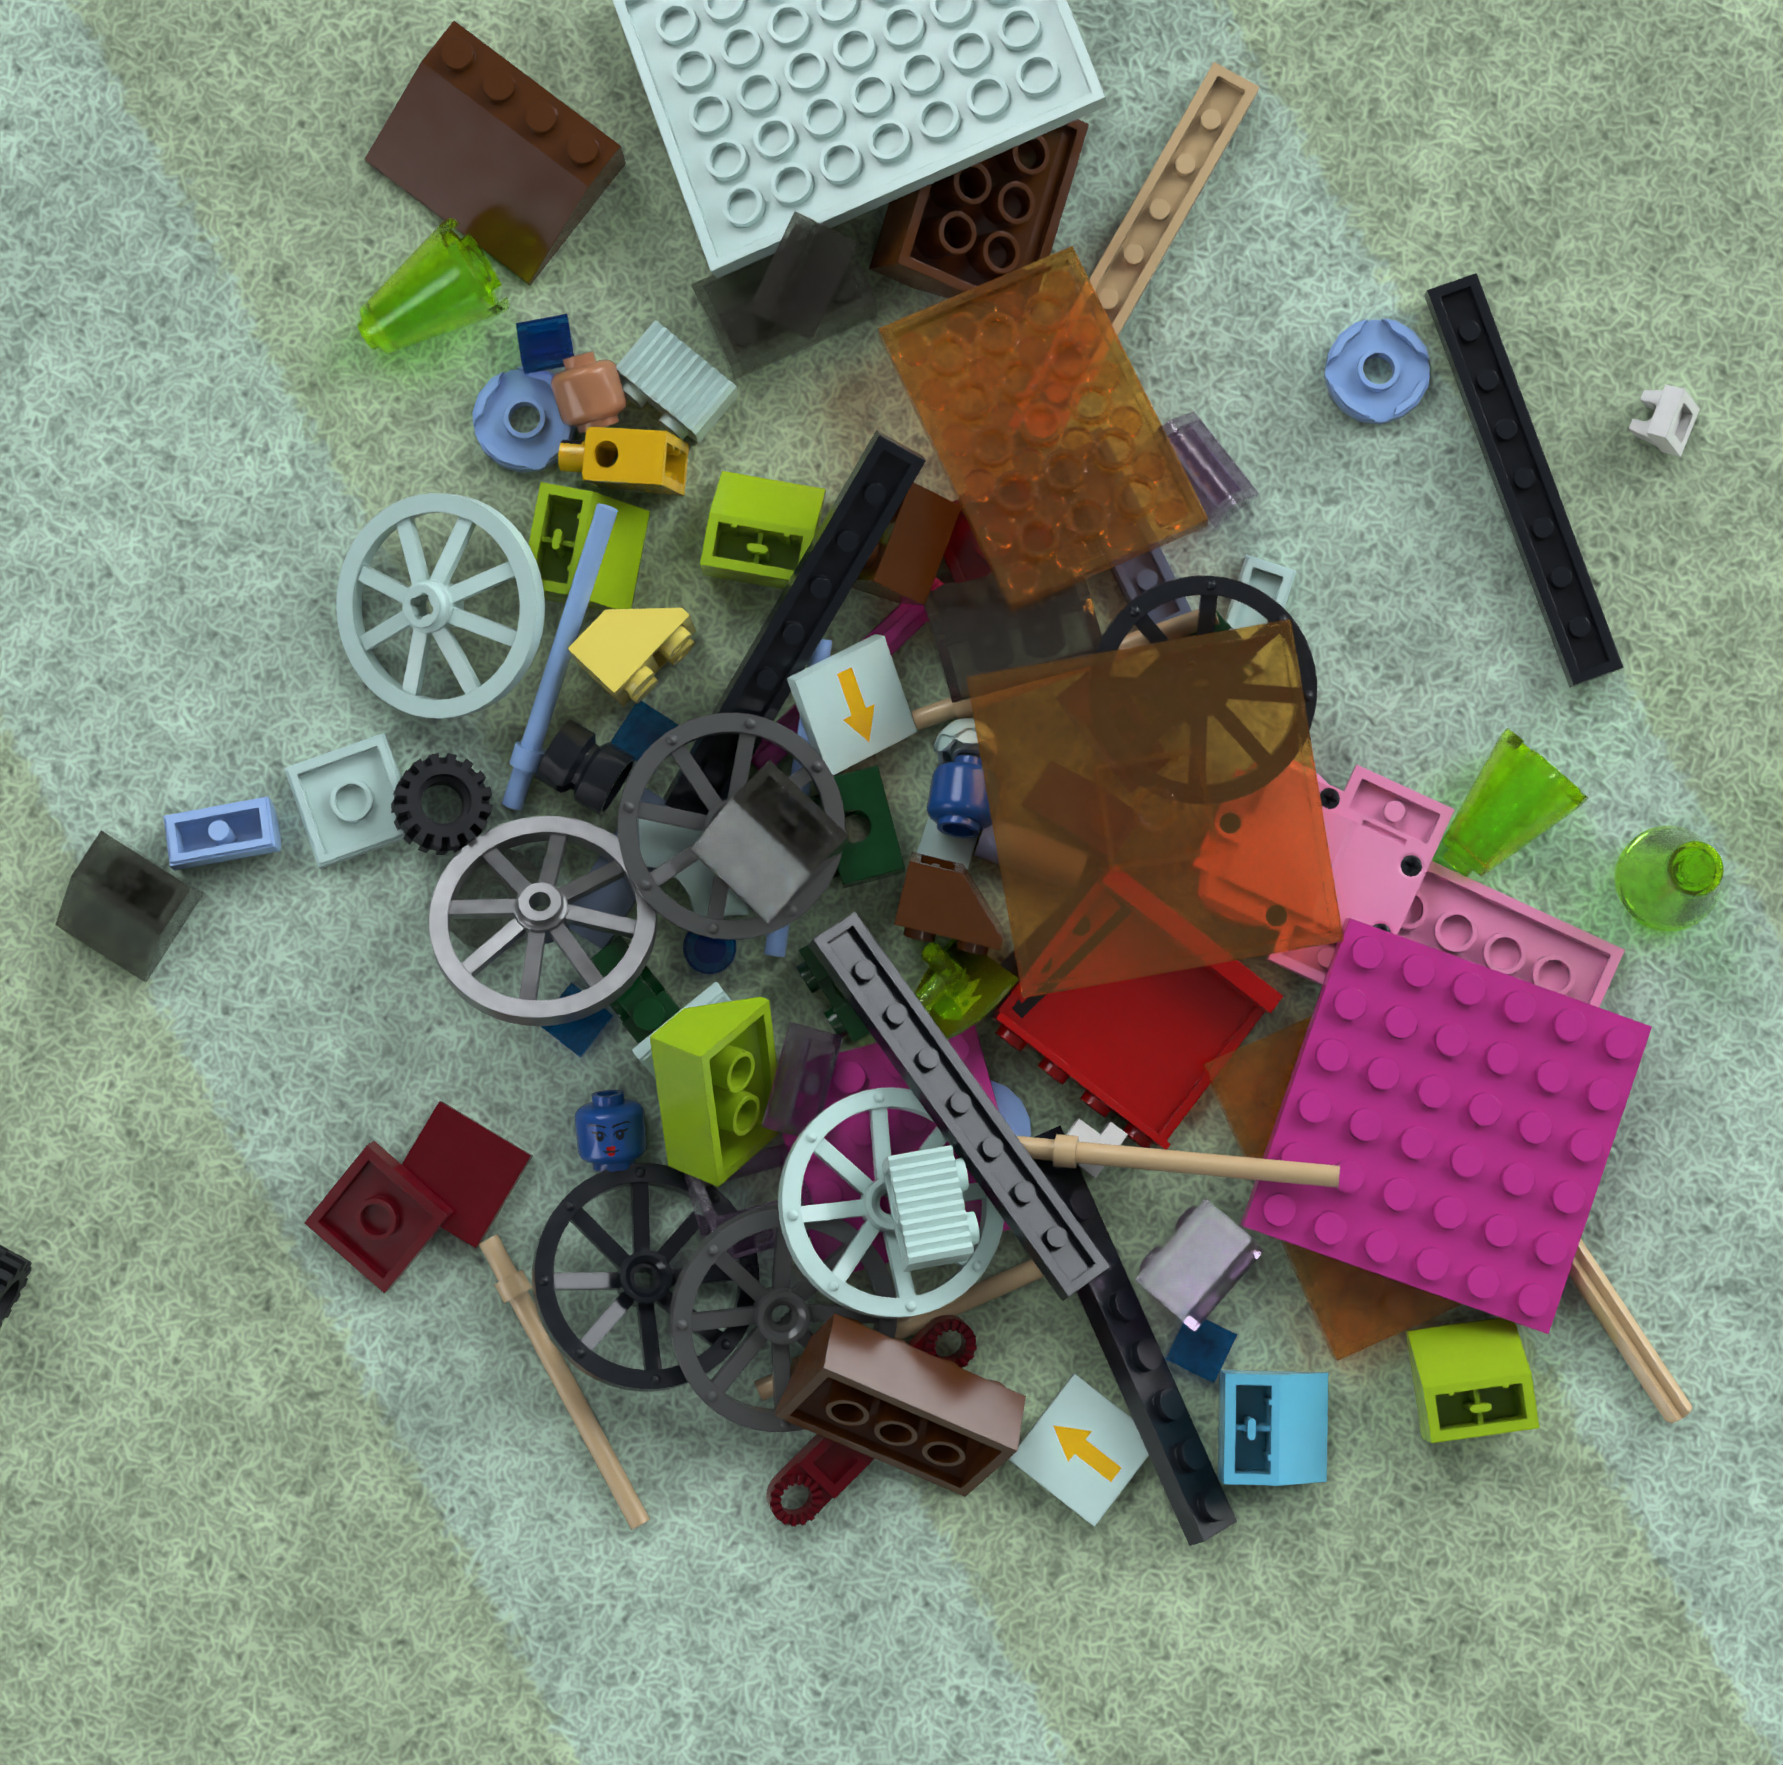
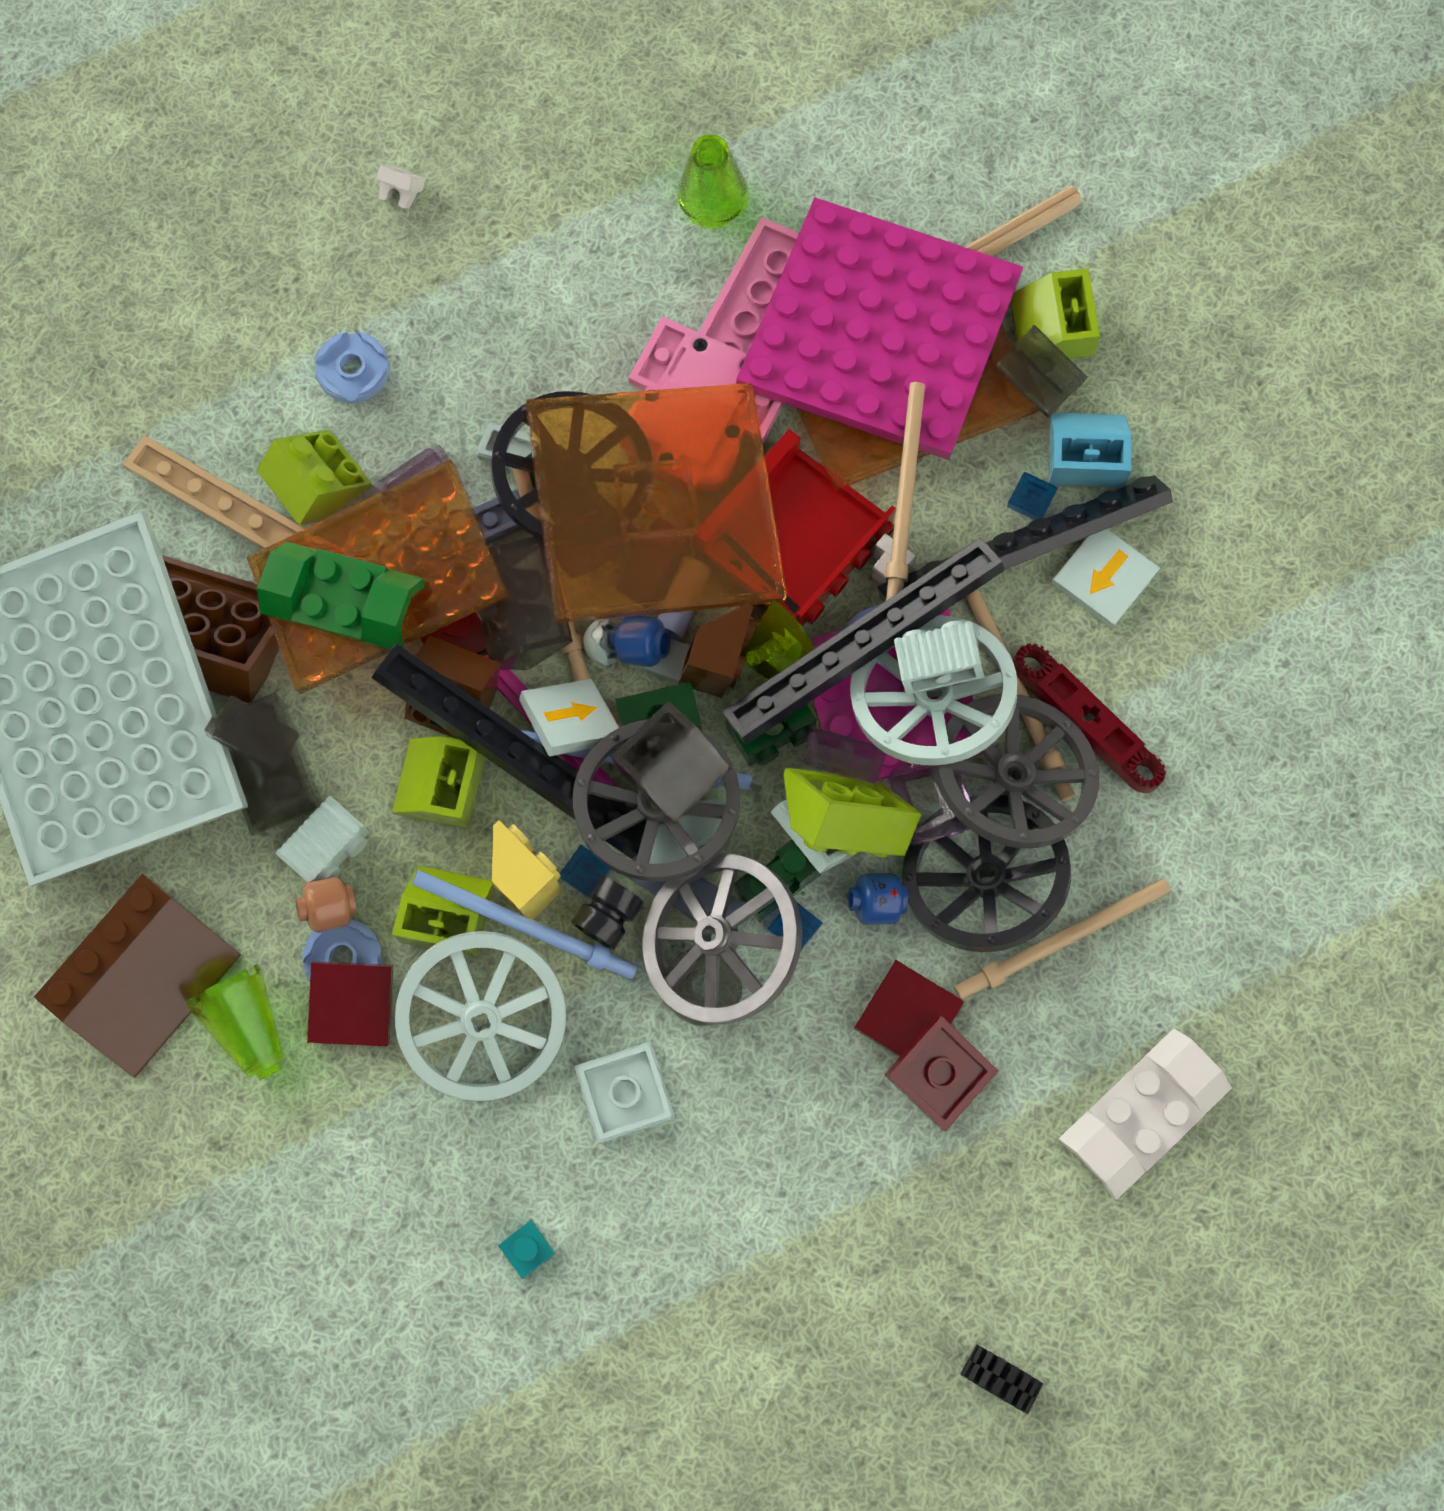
camera: 85 degrees left, 10 degrees down
(126, 905) = (700, 1266): clear smoke slope -> none
(149, 682) = (527, 1249): none -> teal plate
(222, 833) = (646, 1191): light blue brick -> none
(333, 1487) = (1146, 1112): none -> white piece
(446, 772) = (635, 1041): black tyre -> none
(460, 434) = (350, 1003): none -> dark red tile
(545, 343) = (286, 940): clear blue tile -> none
(645, 462) = (376, 859): yellow torso -> none
(708, 954) = (748, 829): clear blue tile -> none
(902, 1406) = (1079, 688): reddish brown slope -> none
(1010, 376) = (336, 594): none -> green piece
(1198, 1263) = (975, 491): brick -> none
(1205, 328) = (312, 475): none -> lime slope
(1381, 1356) = (1041, 371): none -> clear smoke panel
(1508, 807) = (659, 282): clear neon green cone -> none
(1523, 480) = (434, 274): black plate -> none

